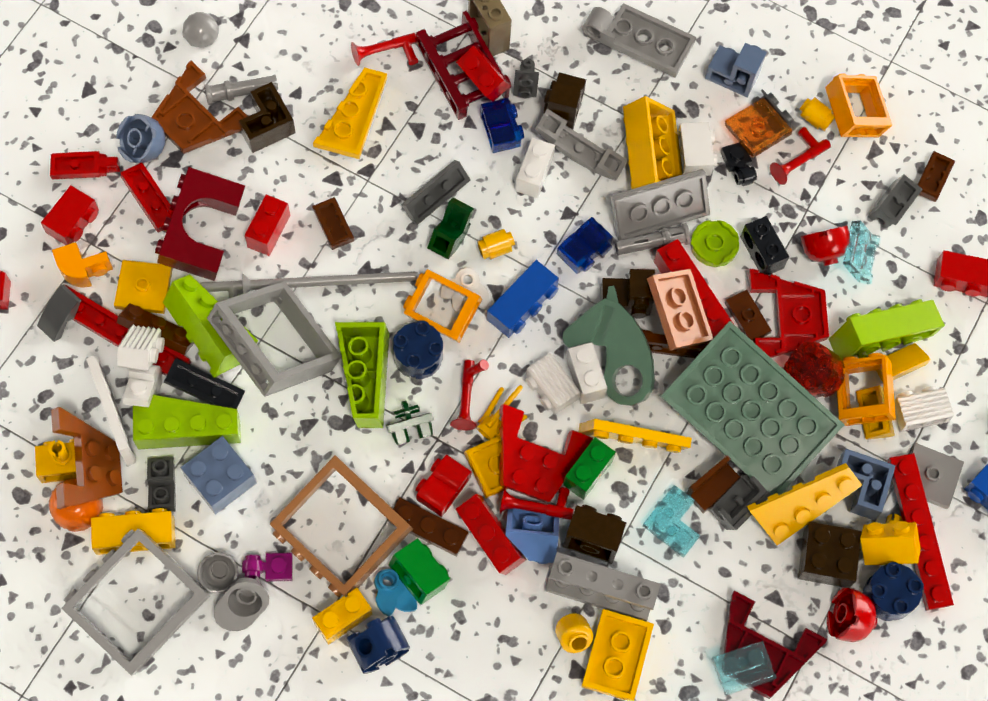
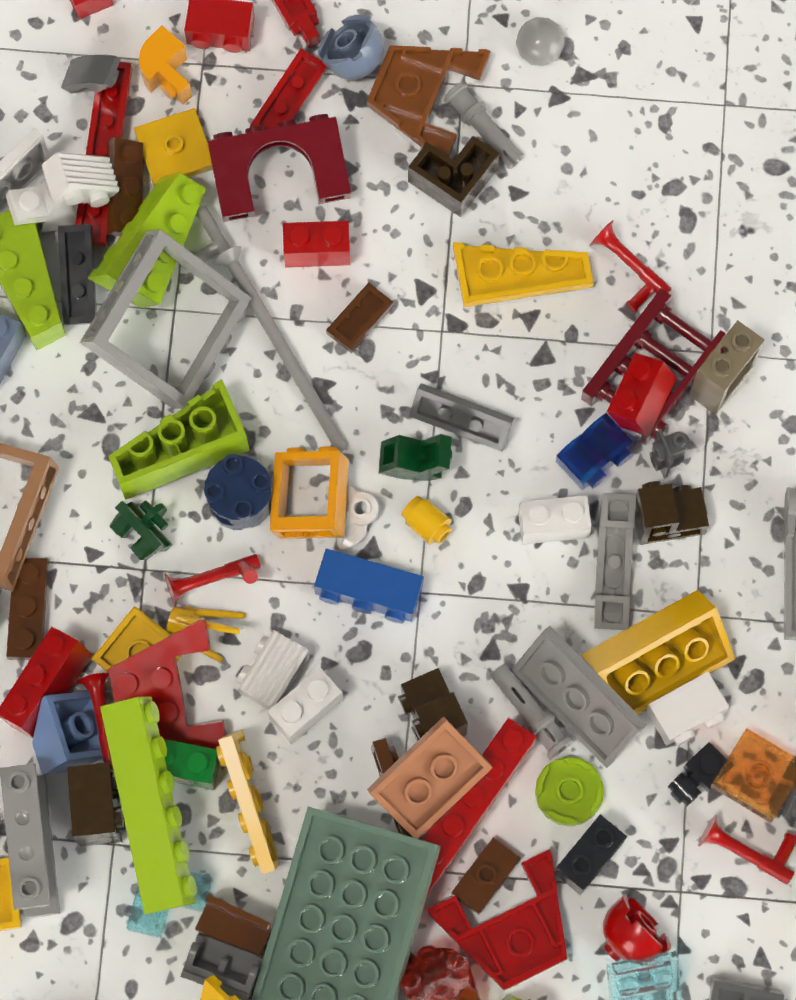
camera: 70 degrees right, 5 degrees up
(443, 485) = (83, 601): red brick -> none
(585, 245) = (479, 629): clear blue brick -> none
(615, 495) = (148, 804): none -> lime brick
(625, 344) = (372, 710): sand green animal -> none

